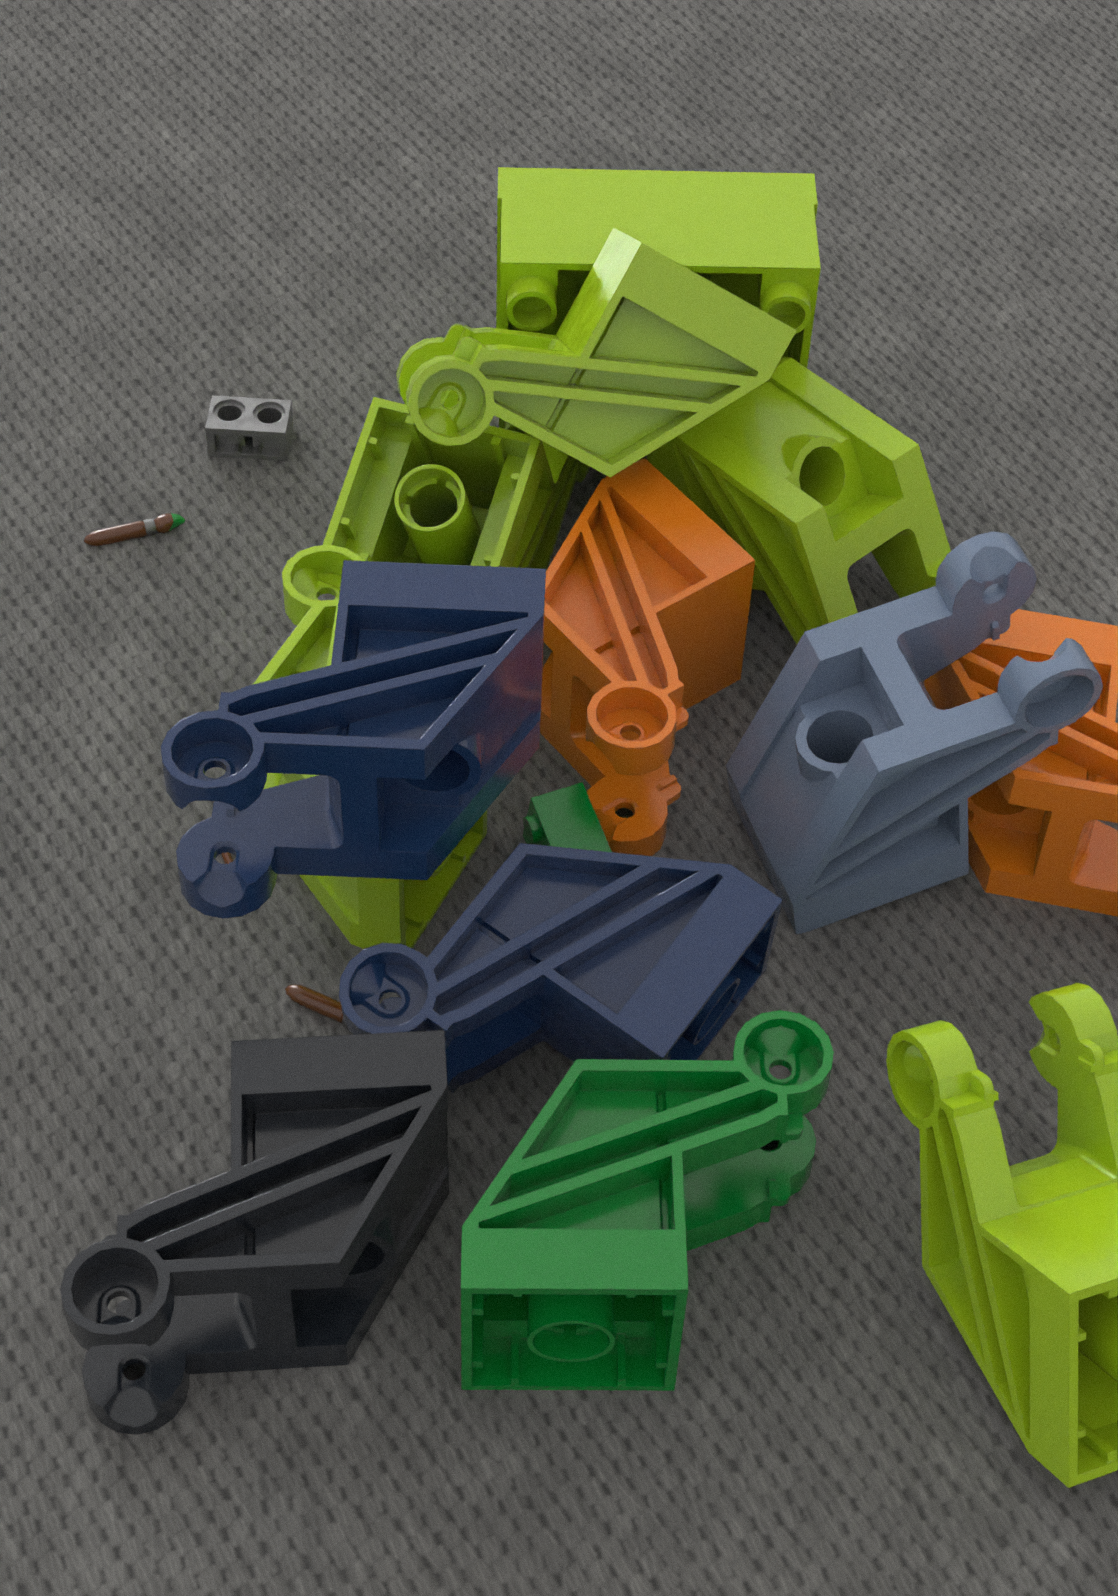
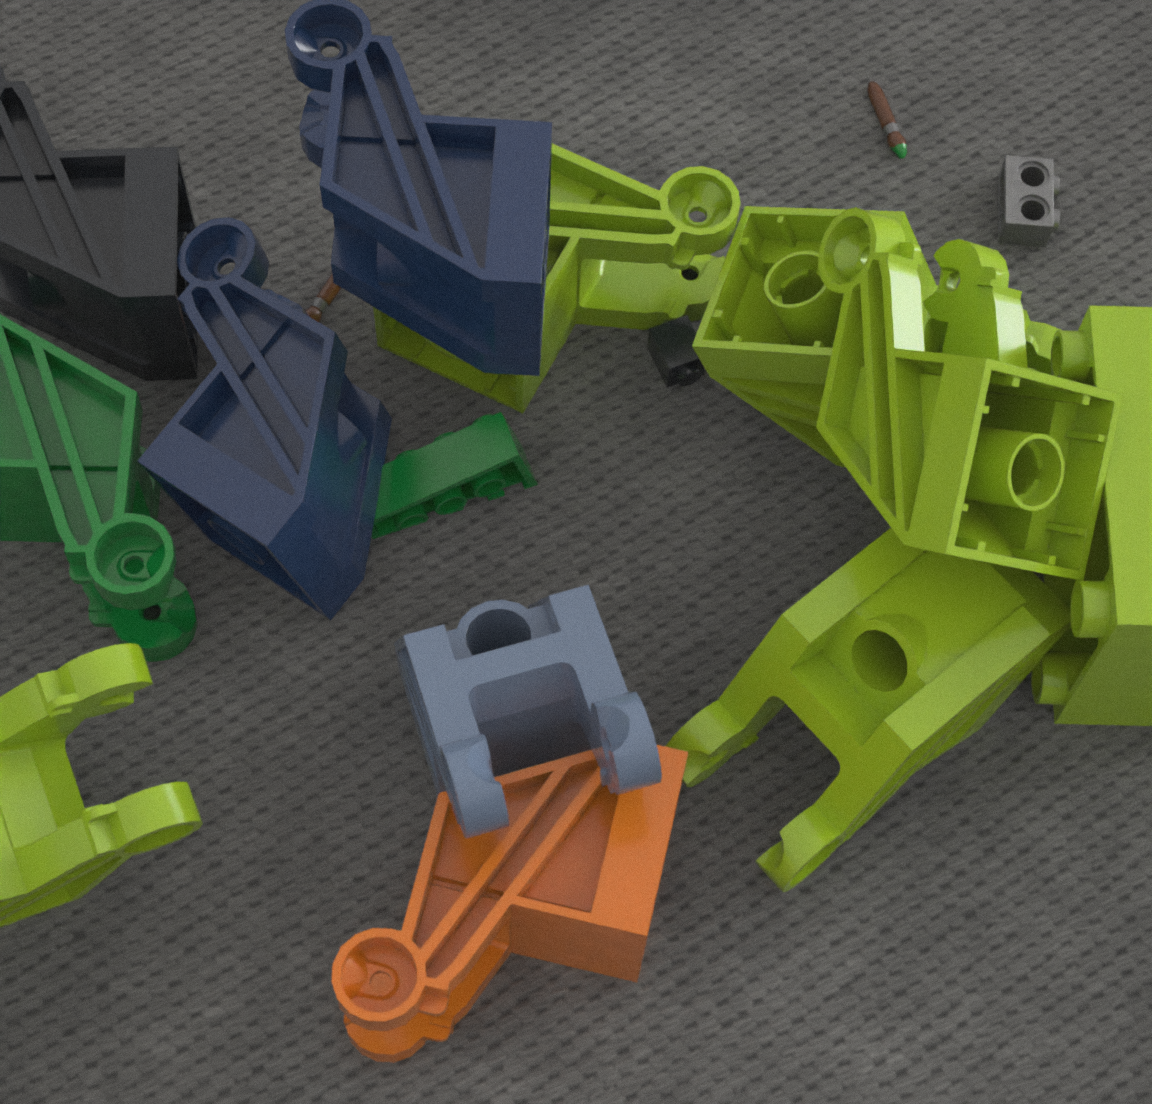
camera: 90 degrees right, 15 degrees up
(639, 627) = (701, 479): orange piece -> none

